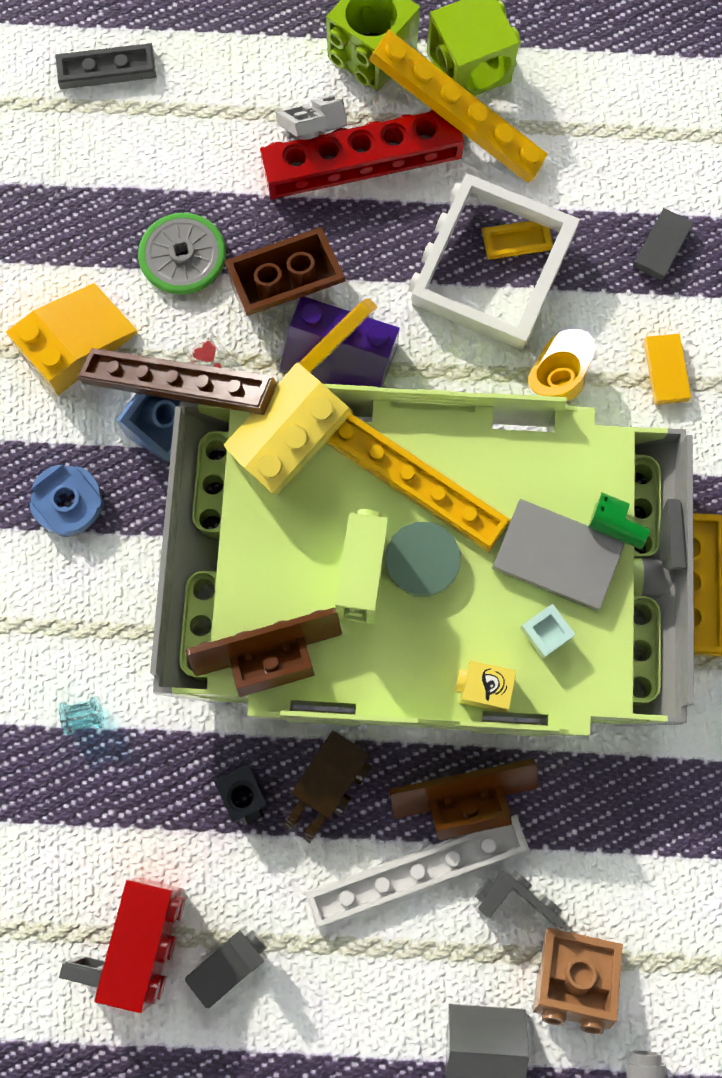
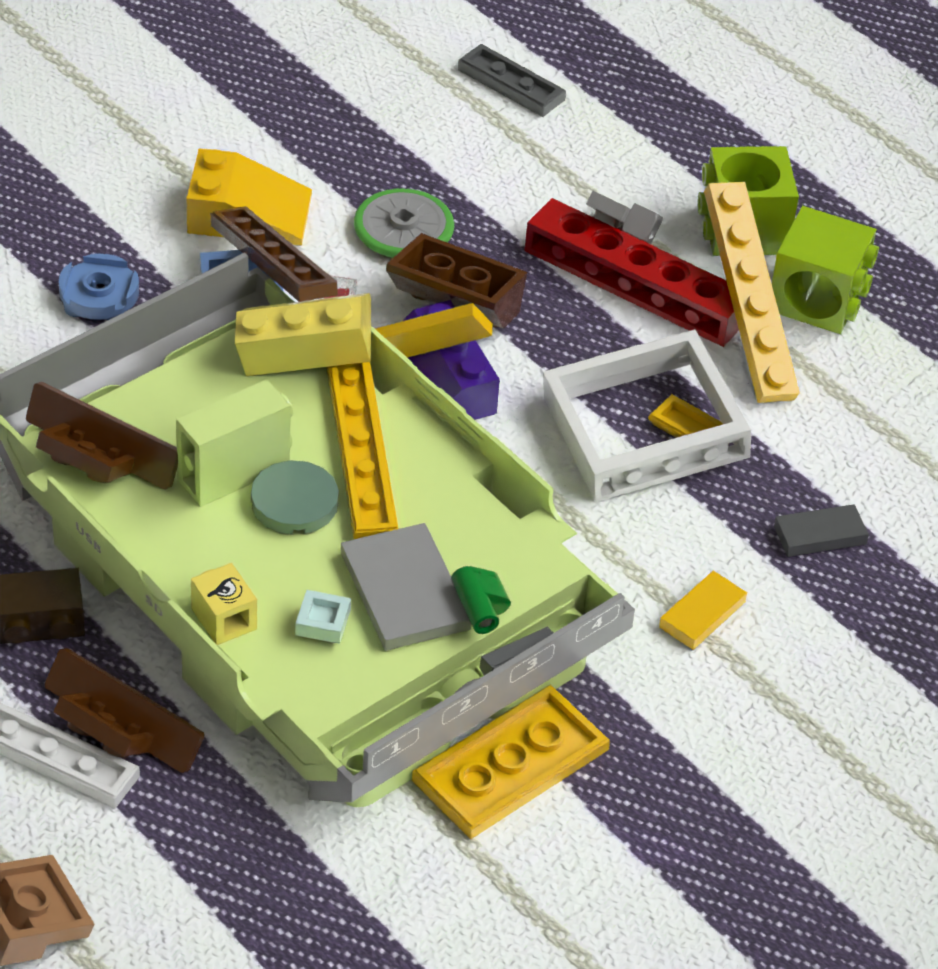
camera: 45 degrees right, 30 degrees down
(494, 893) = (53, 795): dark grey bracket -> none
(563, 365) = (602, 526): yellow piece -> none

